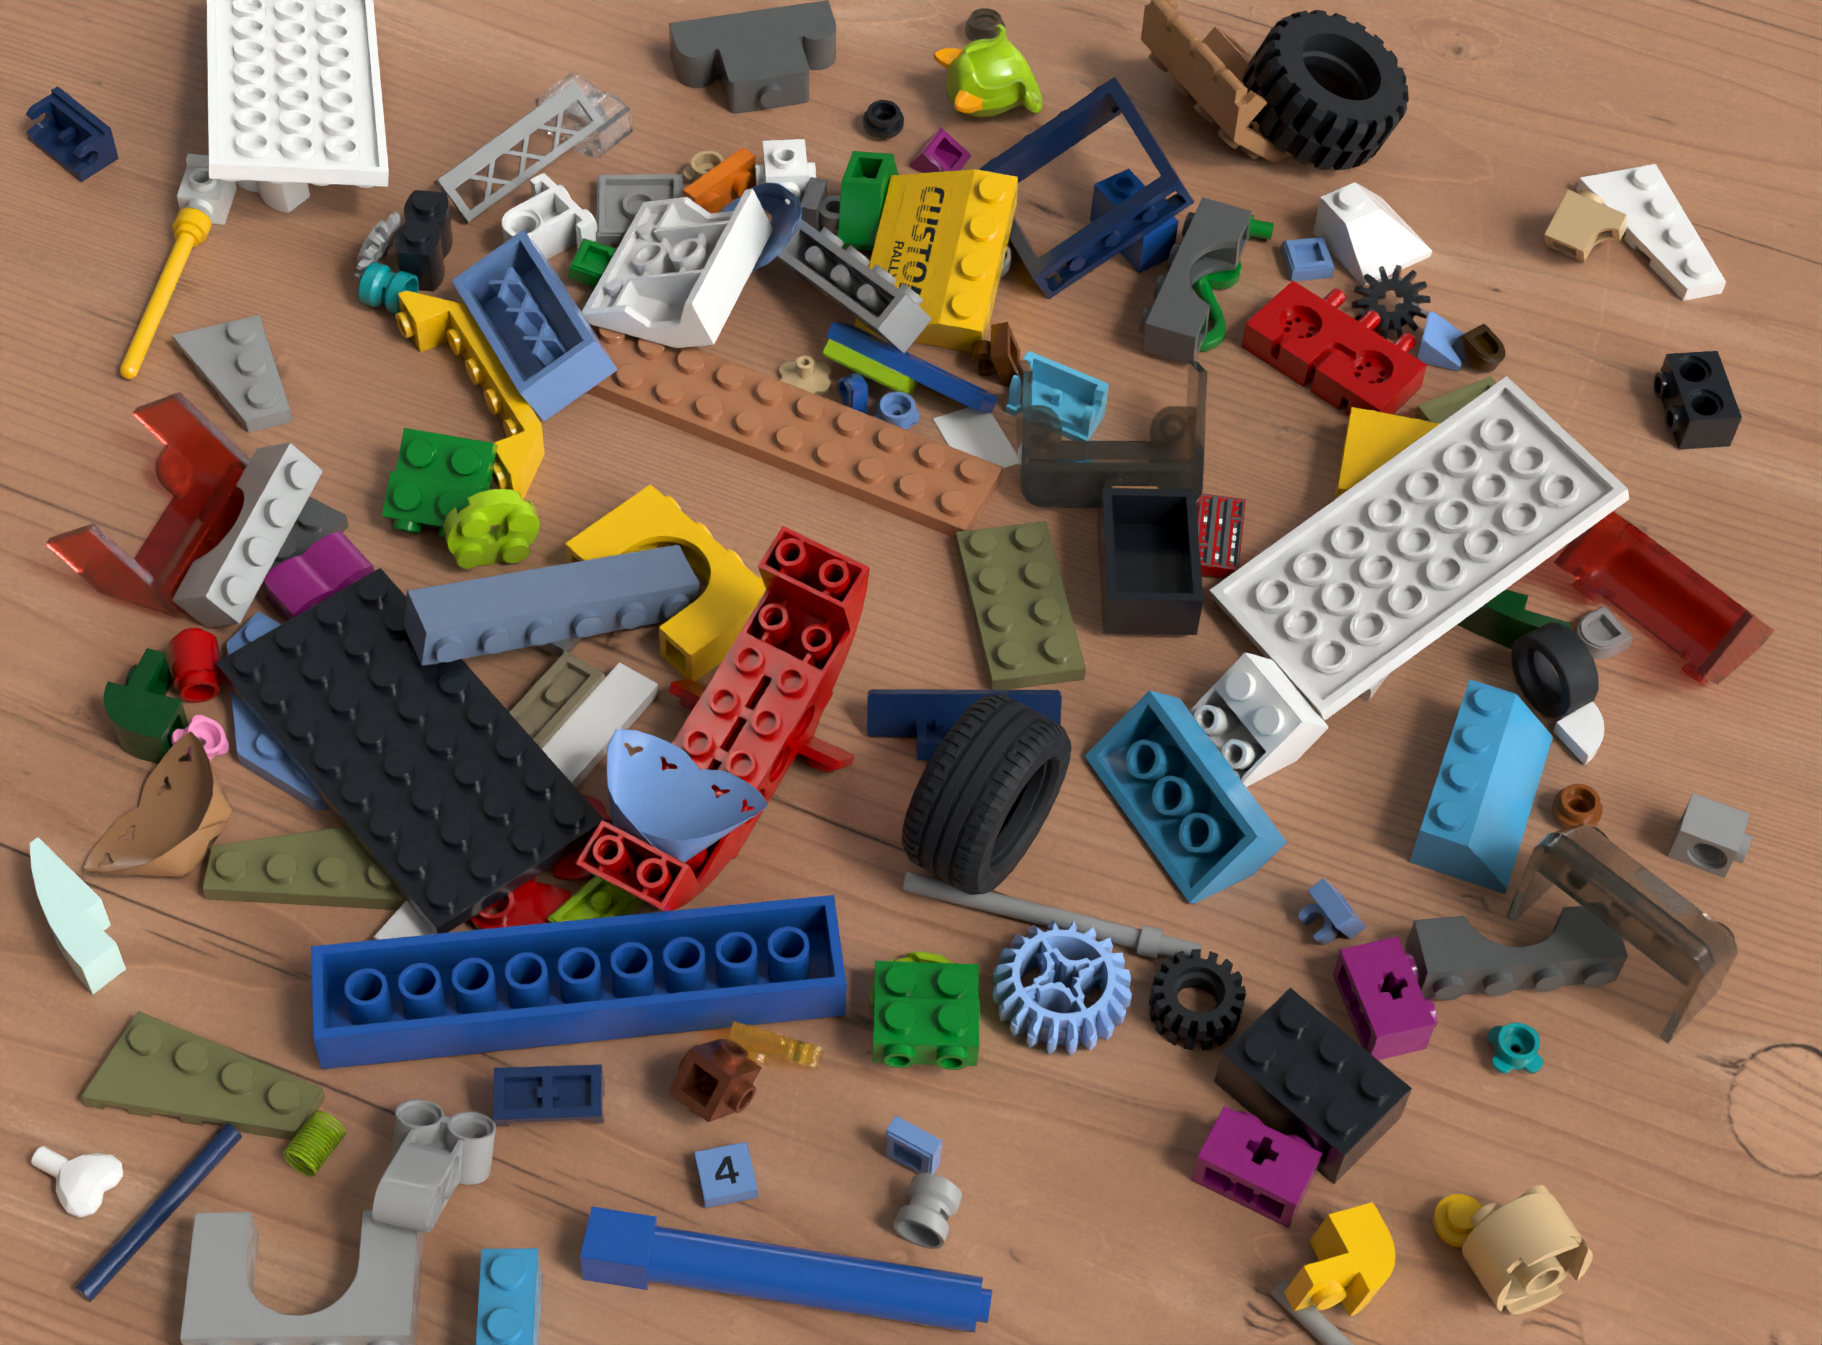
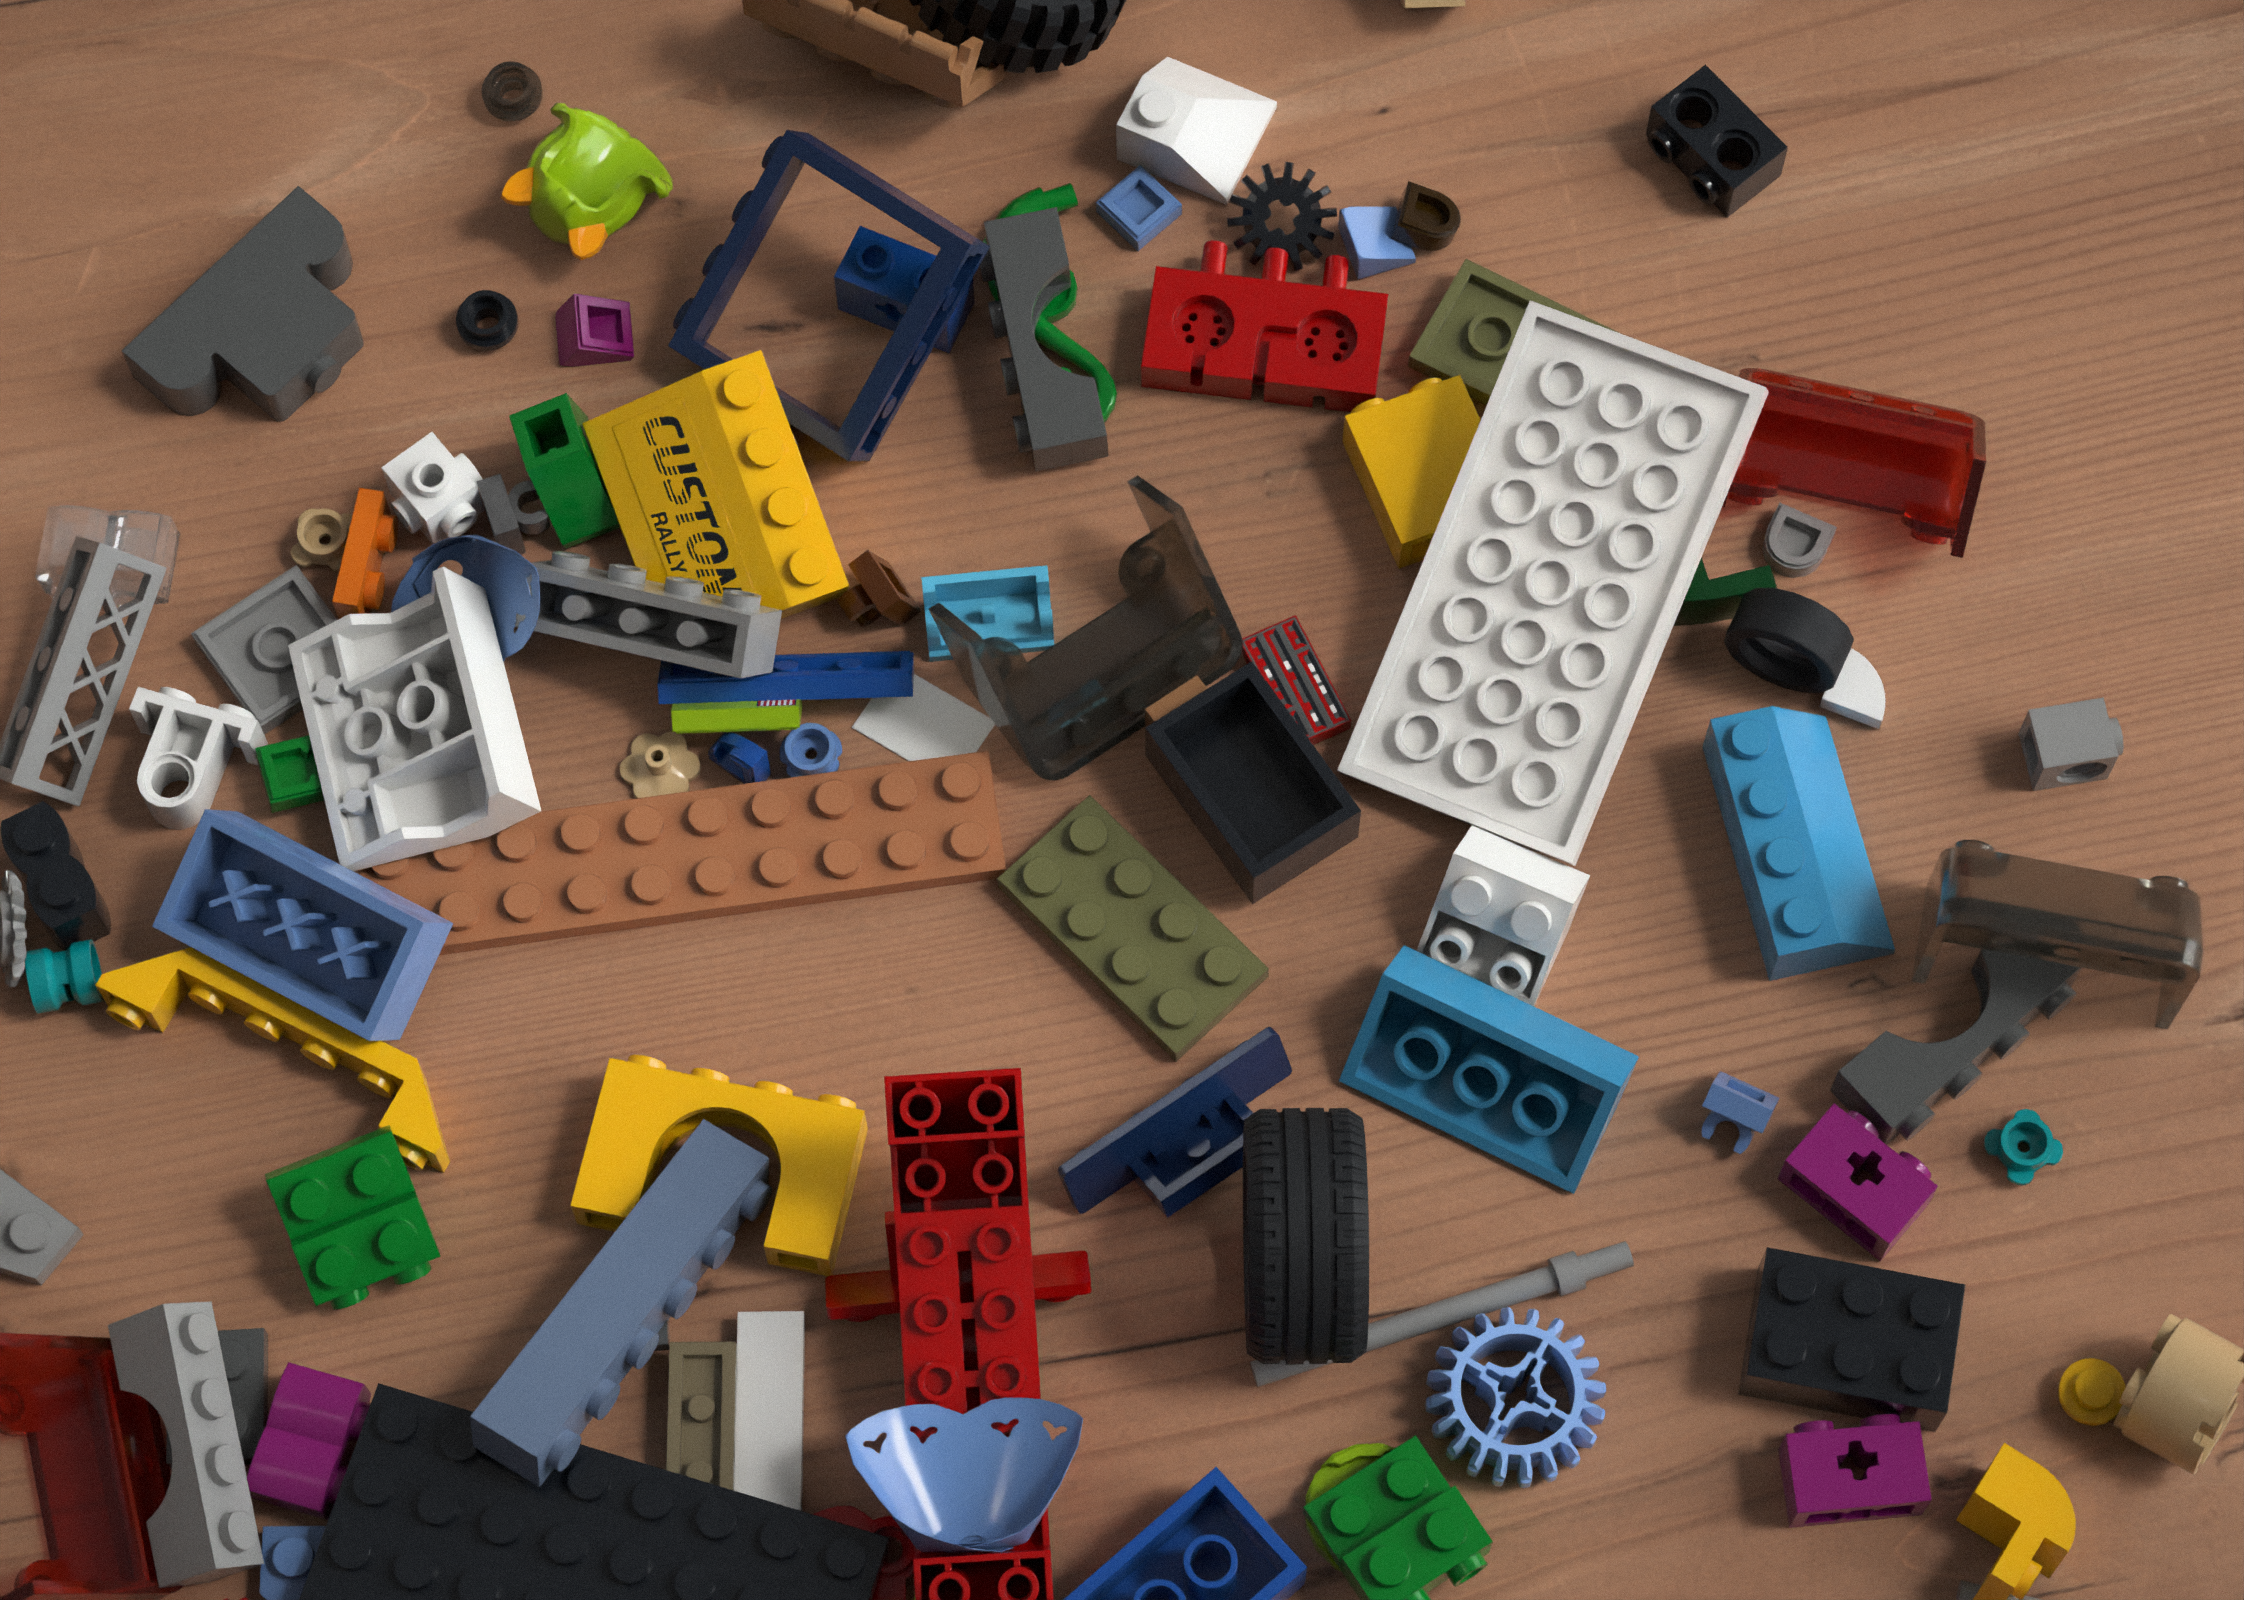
camera: 30 degrees left, 15 degrees up
(474, 541) = (469, 1238): lime plate -> none
(1204, 975) = (1670, 1275): black tyre -> none
(1579, 797) = (1912, 780): dark orange plate -> none

